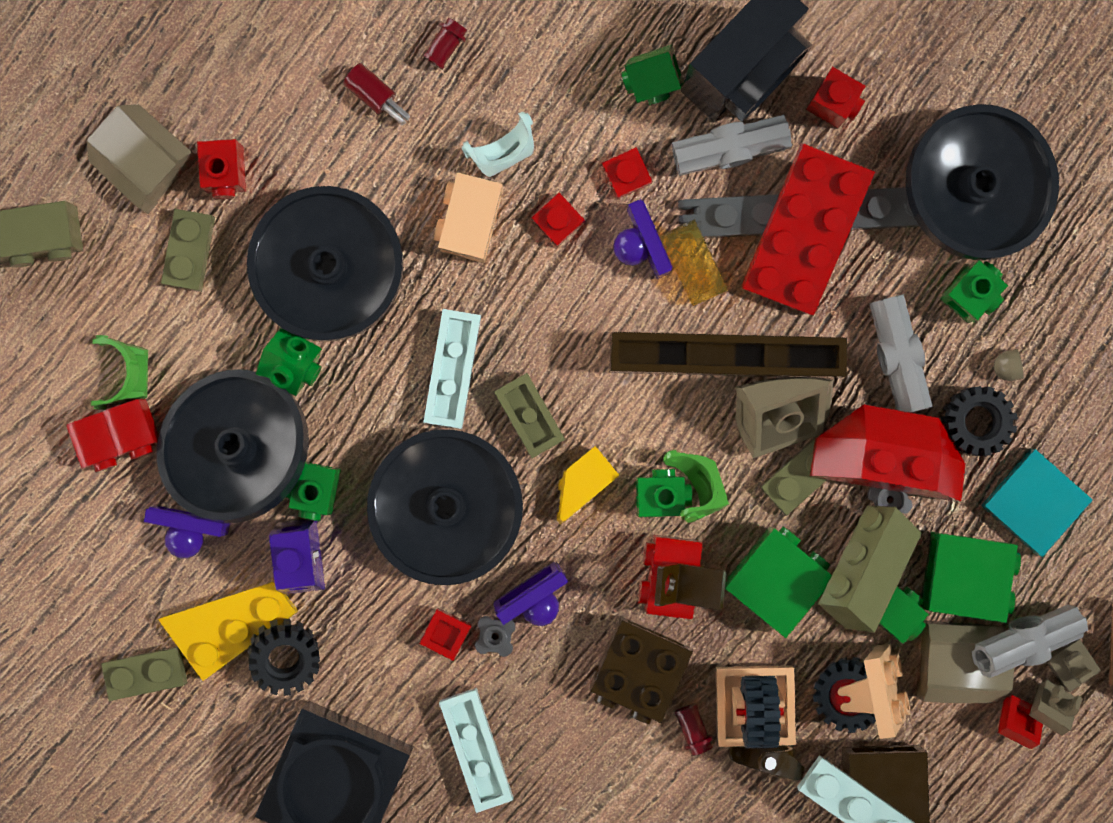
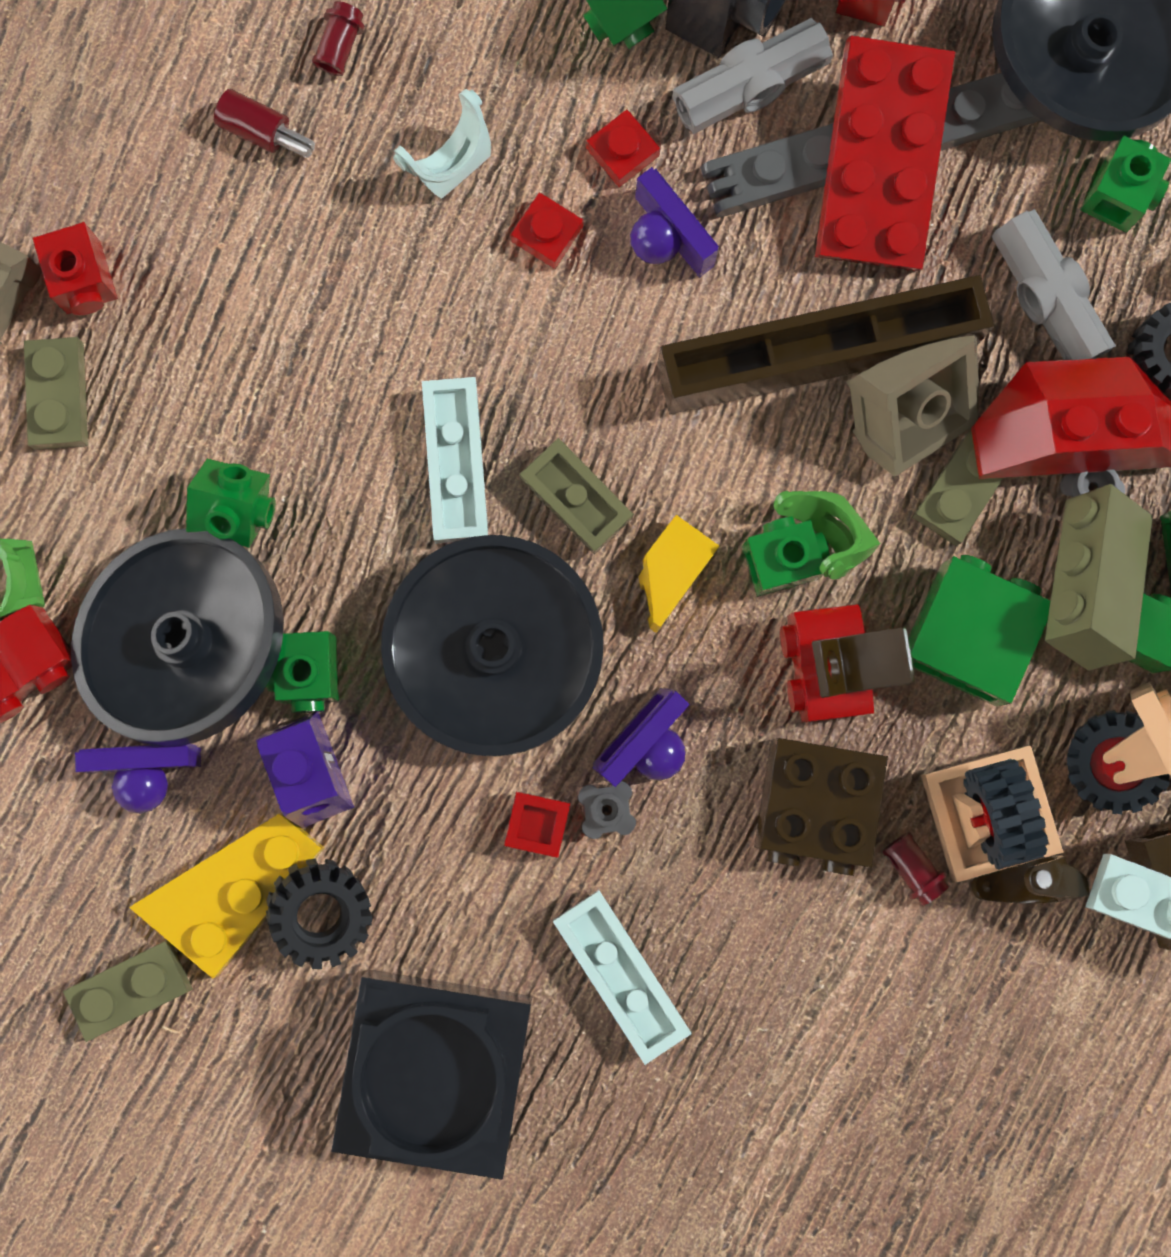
camera: 20 degrees left, 5 degrees down
(325, 263) = (246, 358): black dish -> none
(469, 217) = (427, 253): light nougat brick -> none
(693, 262) = (745, 237): clear yellow plate -> none

